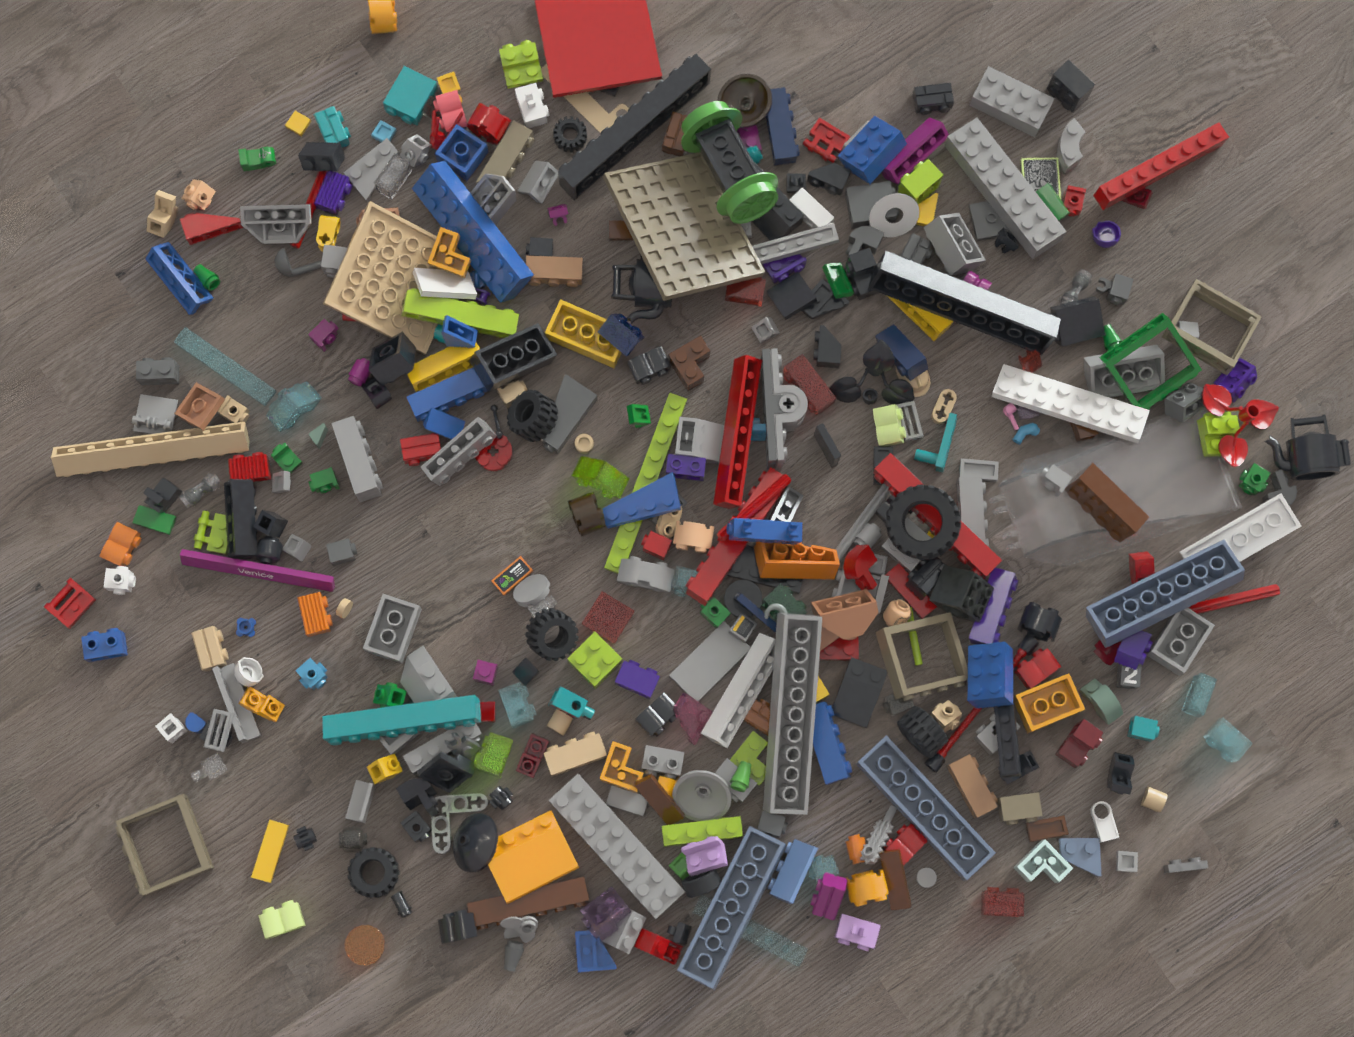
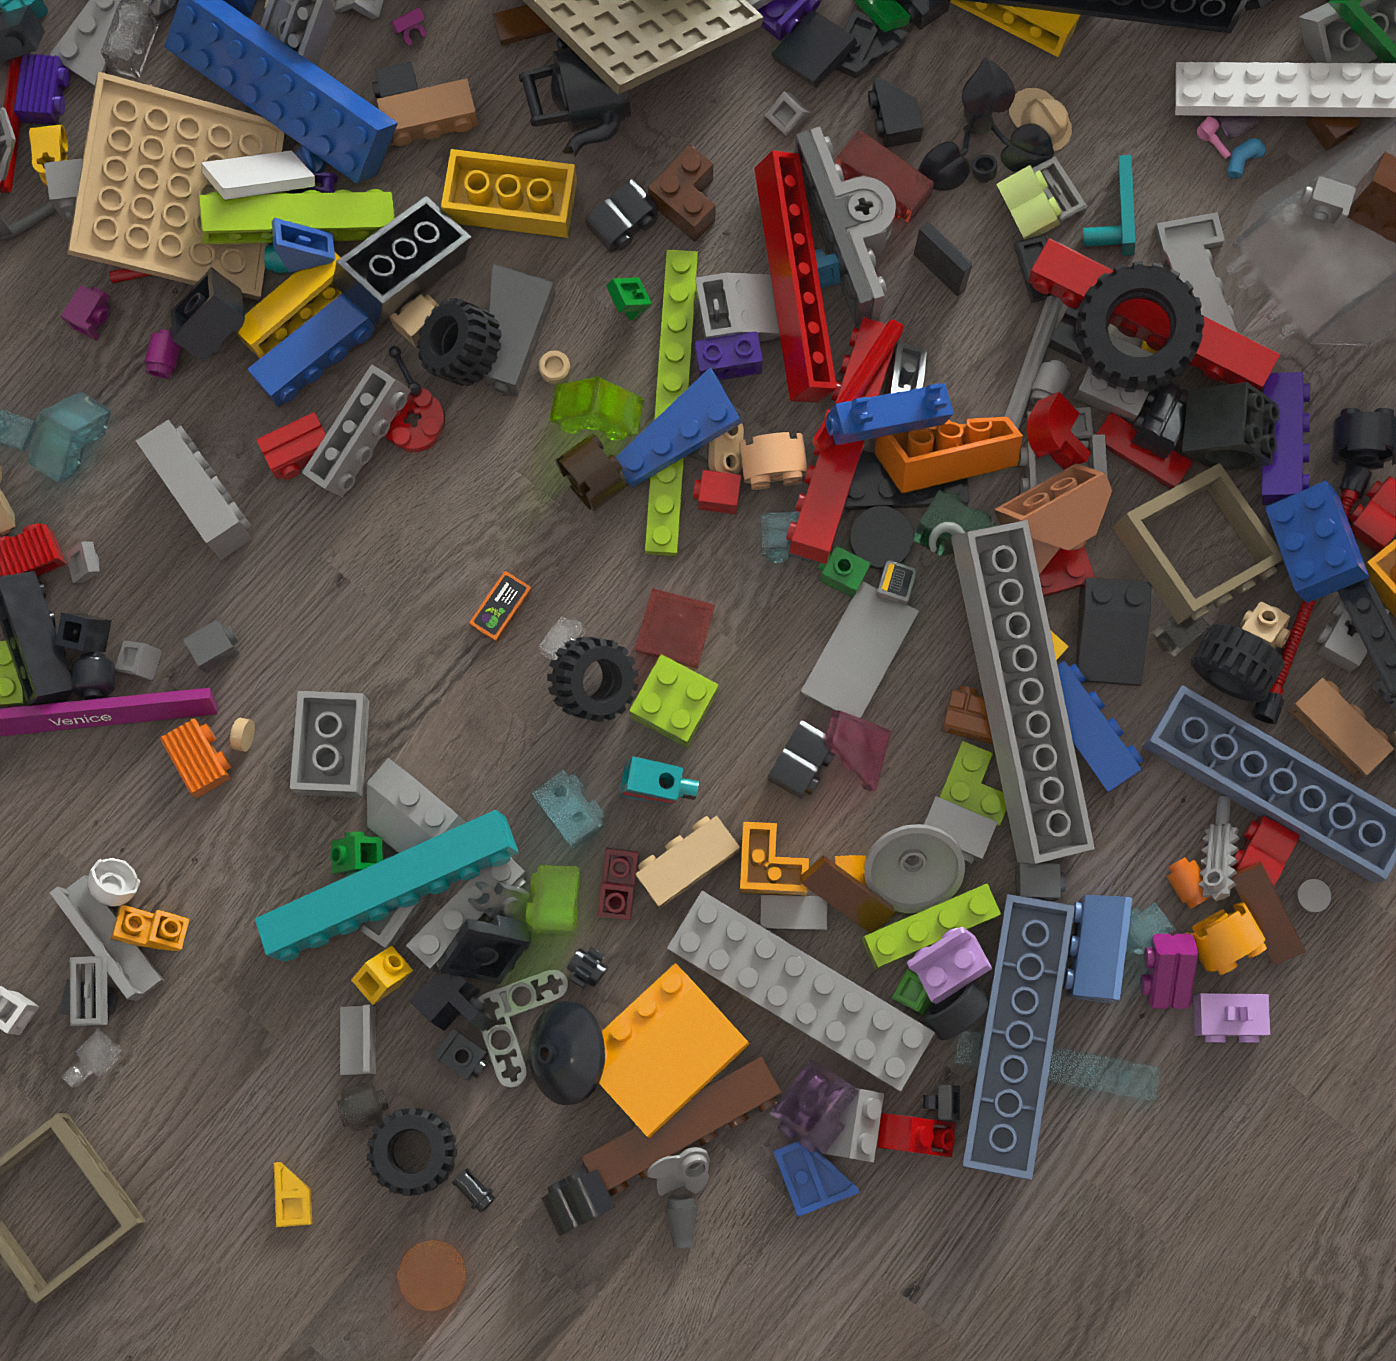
camera: 10 degrees left, 0 degrees up
(195, 723) = (46, 991): blue brick -> none
(209, 648) = (38, 861): tan brick -> none
(241, 623) = (80, 808): blue plate -> none
(270, 851) = (231, 1166): yellow tile -> none
(281, 920) = (281, 1275): yellowish green brick -> none
(286, 458) = (80, 522): green bracket -> none
(299, 879) = (292, 1198): none -> yellow tile
(305, 838) = (282, 1127): black gear -> none
(307, 669) = (210, 850): dark azure brick -> none
(318, 435) = (123, 471): sand green slope -> none
(323, 481) = (151, 541): green brick -> none
(376, 392) = (199, 379): black slope -> none
(443, 423) = (318, 394): blue slope -> none
(444, 255) = (245, 131): light orange brick -> none
(485, 672) = (502, 772): magenta brick -> none
(488, 711) = (525, 834): red slope -> none
(525, 671) = (567, 751): black slope -> none
(531, 590) = (539, 618): light grey tile -> none
(560, 722) = (646, 817): tan brick -> none
(621, 333) = (563, 173): clear blue bracket -> none
(637, 679) = (752, 712): dark purple brick -> none
(645, 574) = (715, 542): light grey brick -> none
(662, 761) = (832, 832): light grey brick -> none
(741, 692) = (927, 682): white brick -> none
(741, 777) = (970, 819): bright green cone -> none
(746, 292) = (740, 61): clear red brick -> none
(755, 611) = (914, 551): dark blue tile -> none
(897, 612) = (1134, 488): light nougat head -> none
(908, 358) = (1036, 88): dark blue brick -> none
(915, 644) = (1171, 523): lime piece -> none
(939, 404) = (1097, 152): tan beam -> none
(1030, 362) = (1219, 45): clear red tile -> none

